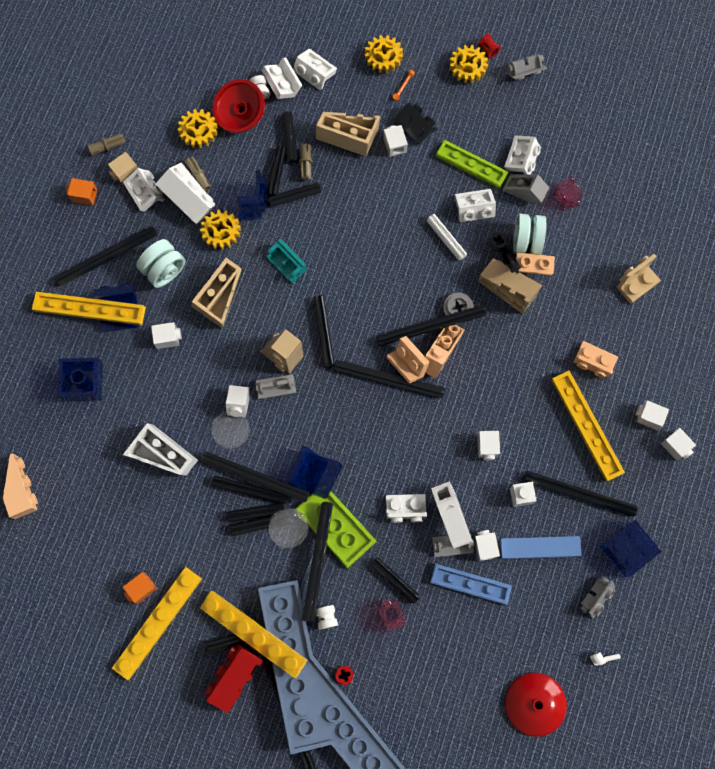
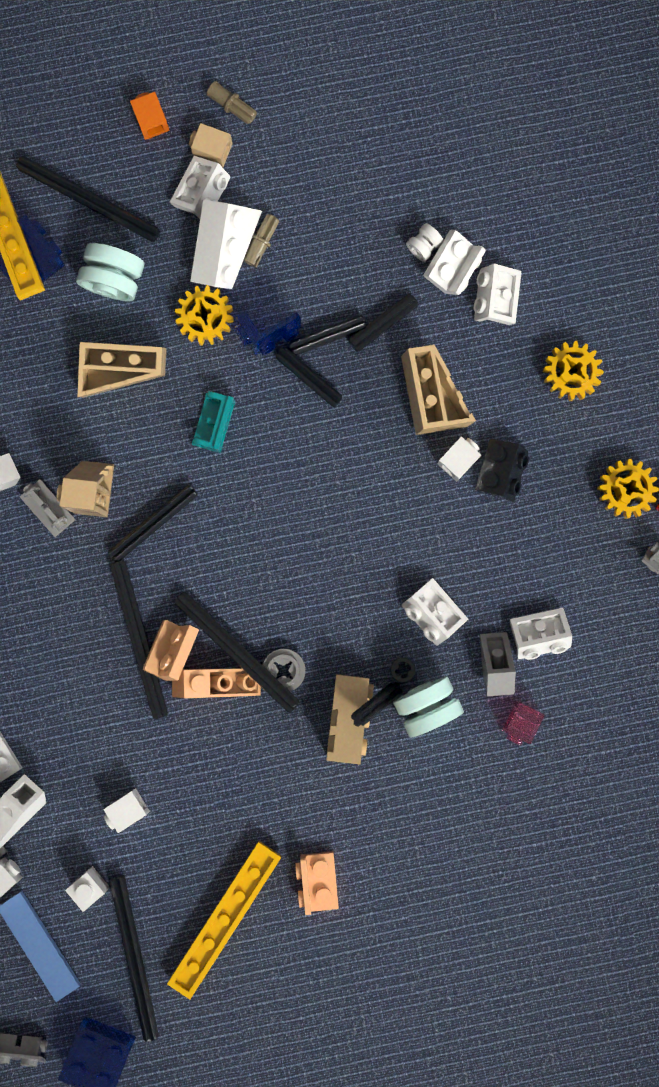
camera: 60 degrees right, 10 degrees up
(166, 335) = (29, 336): white brick -> none
(189, 126) = (314, 192): yellow gear -> none
(232, 99) = (376, 220): red dish -> none
(305, 162) = (360, 364): dark tan axle -> none
(396, 96) = (525, 422): orange hinge -> none
(446, 237) = (369, 601): white axle -> none
(471, 164) = (490, 574): lime tile -> none
(536, 263) = (393, 736): light nougat bracket -> none
(638, 280) = (456, 881): tan bracket -> none
(651, 415) = (285, 993): white brick -> none
(678, 445) = (266, 1047): white brick -> none

